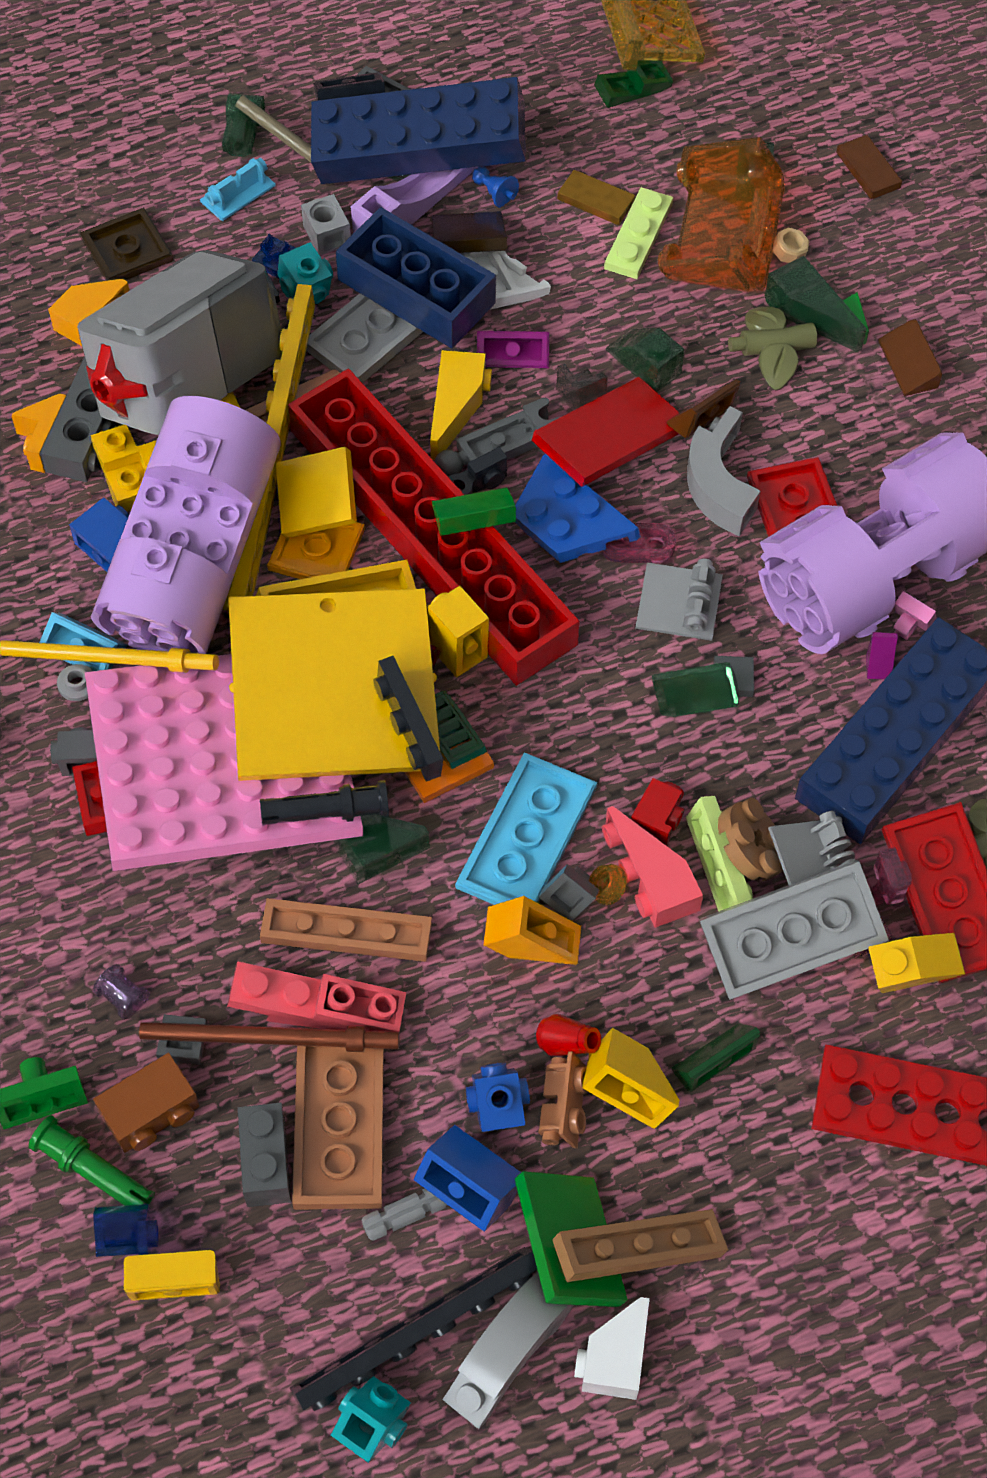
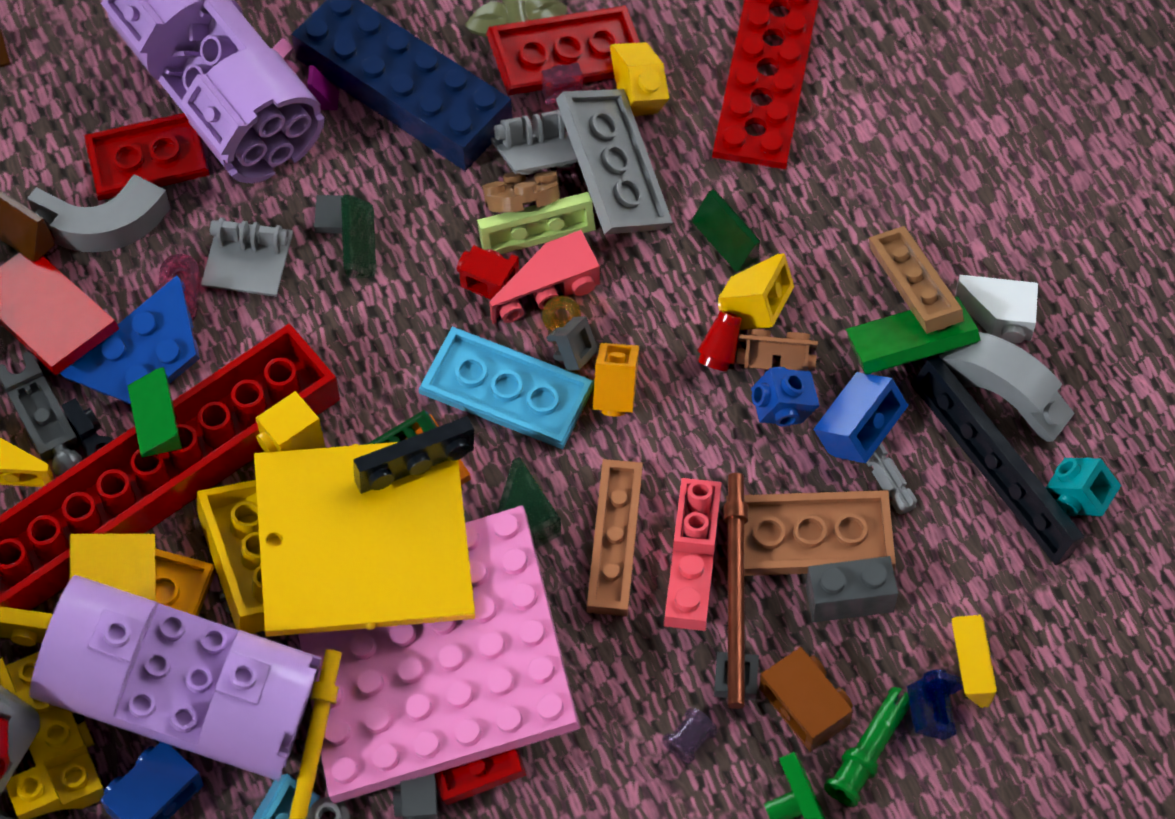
camera: 90 degrees left, 0 degrees up
(344, 803) = (508, 510): black pin -> none

